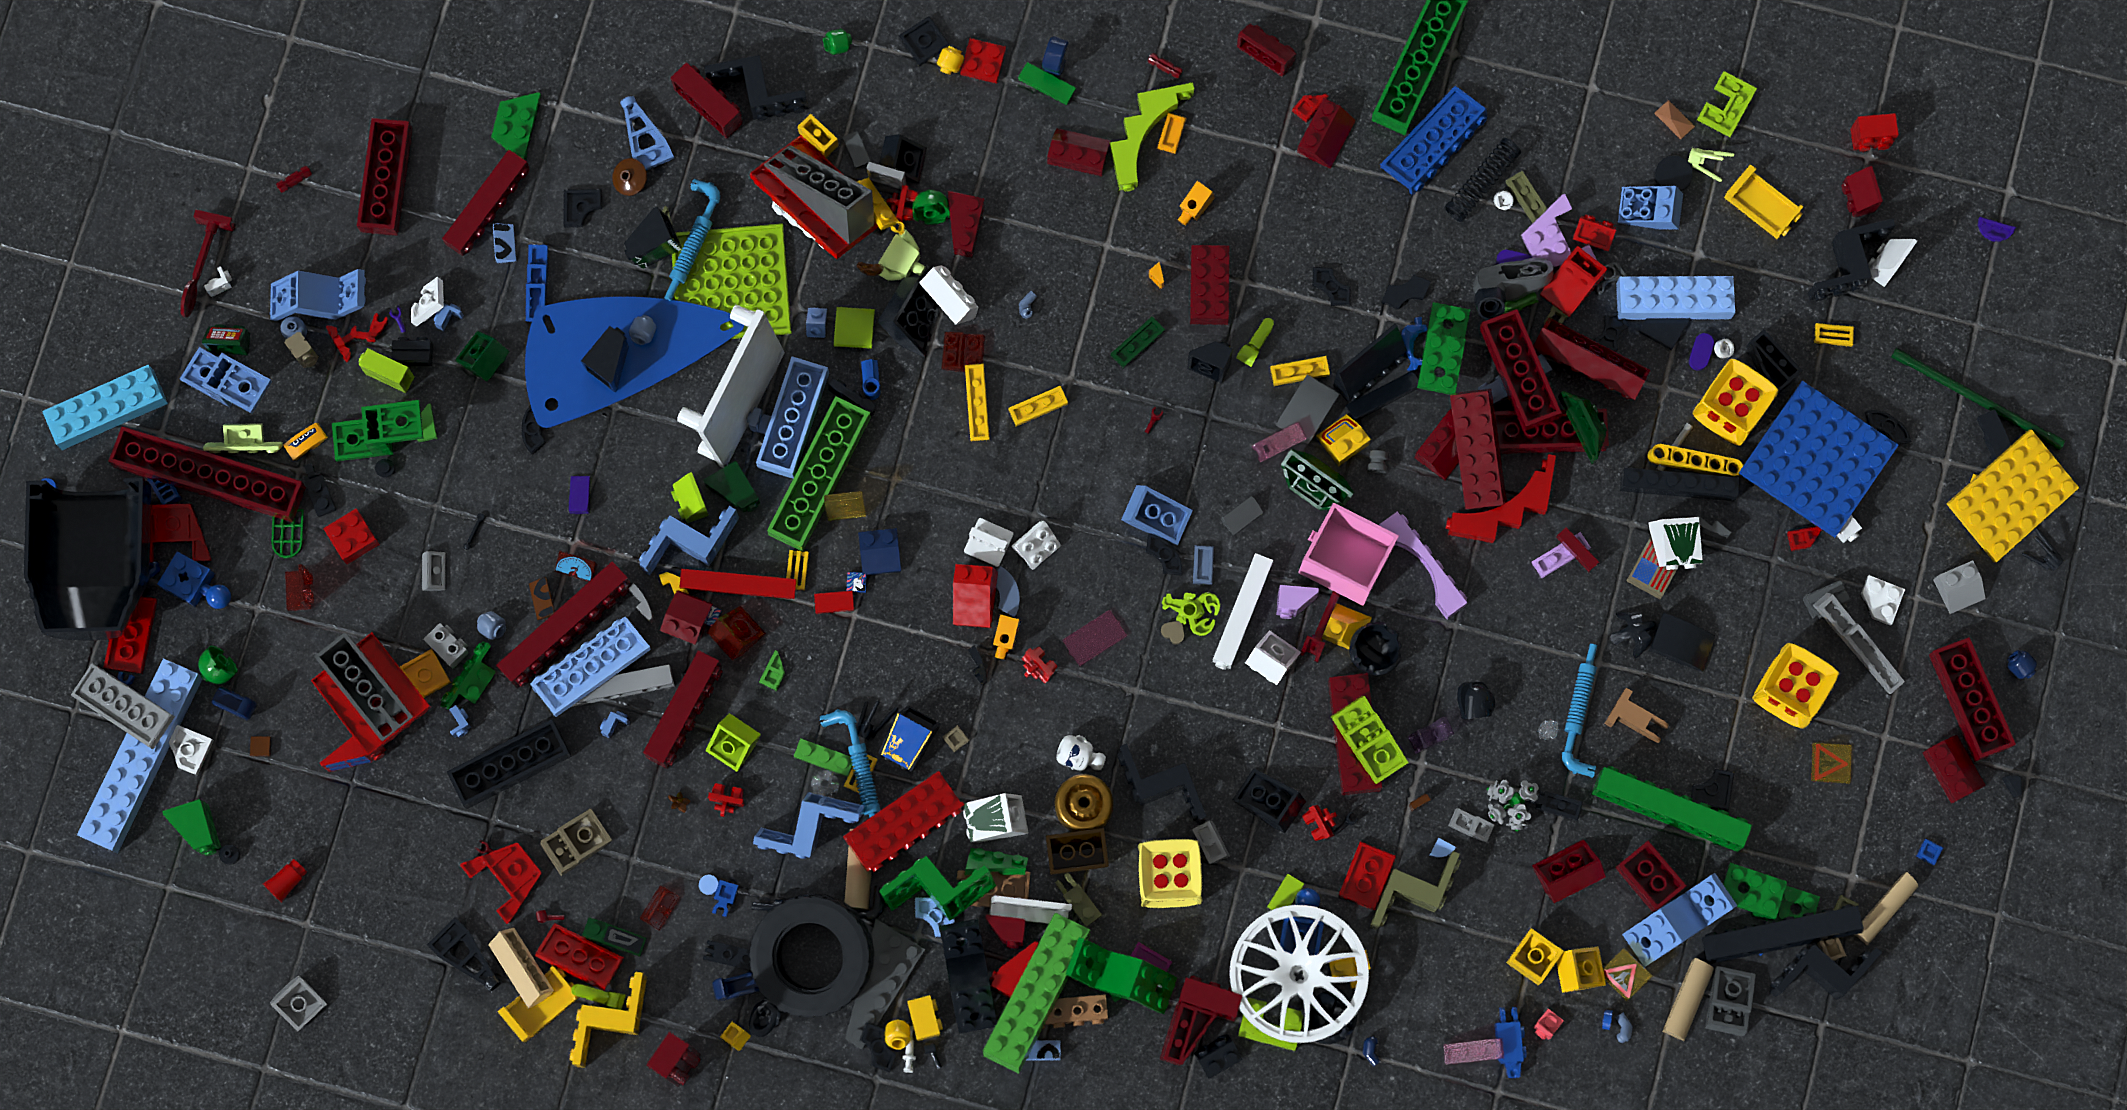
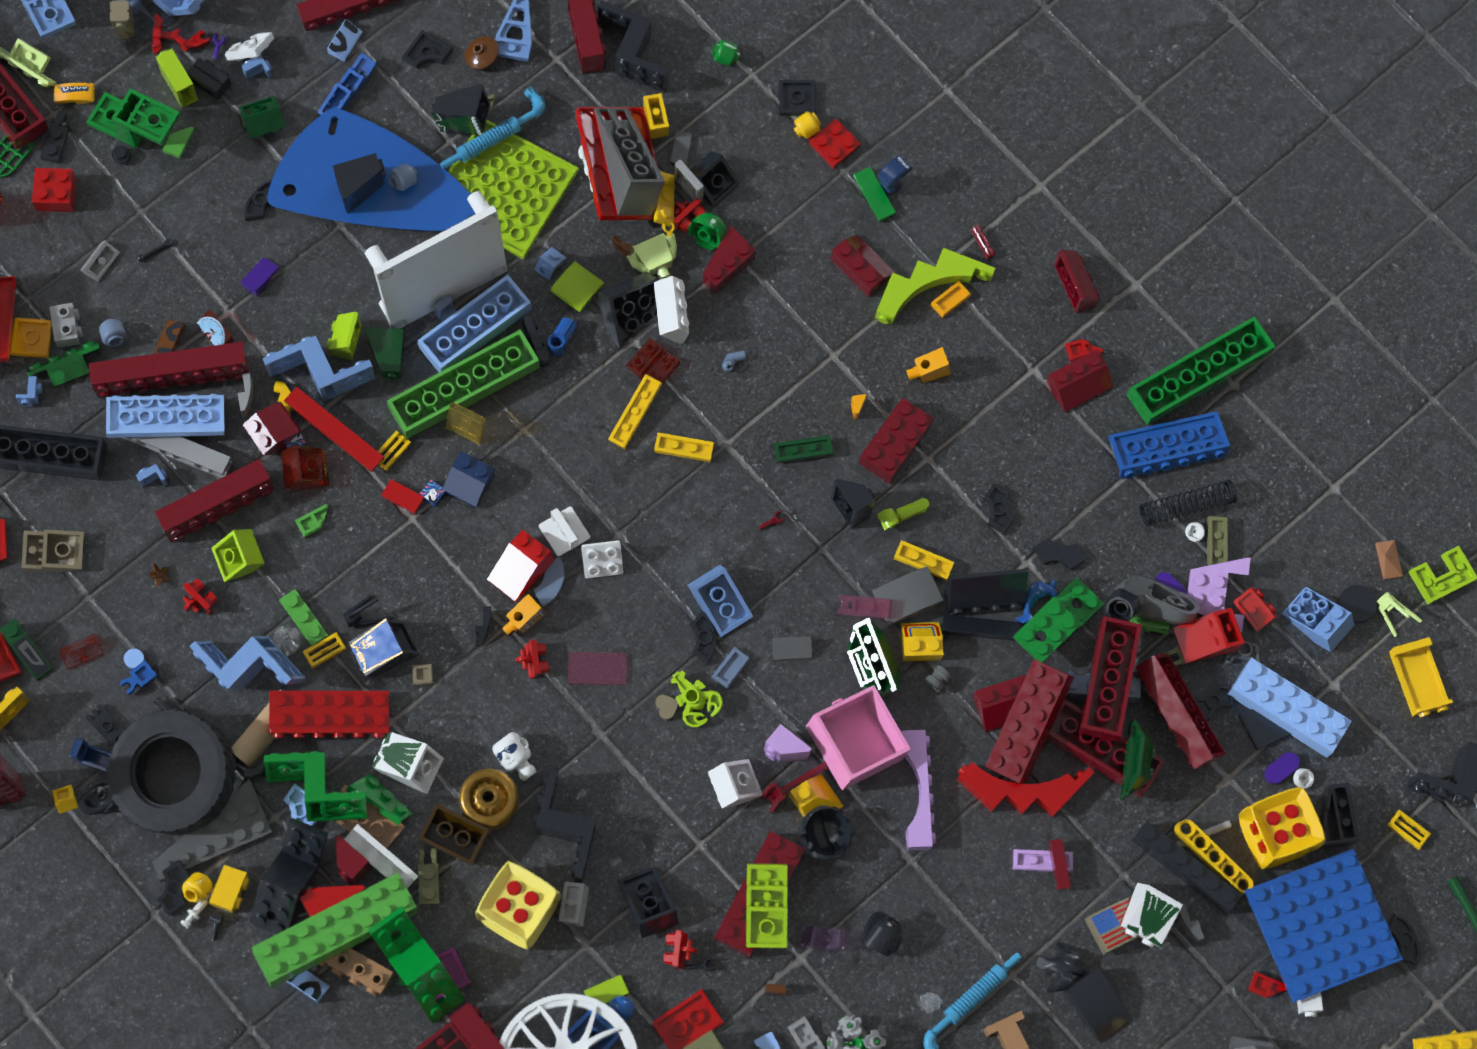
camera: 25 degrees right, 5 degrees down
(859, 760) = (328, 639): dark azure piece -> none
(1242, 611) = (735, 728): white brick -> none

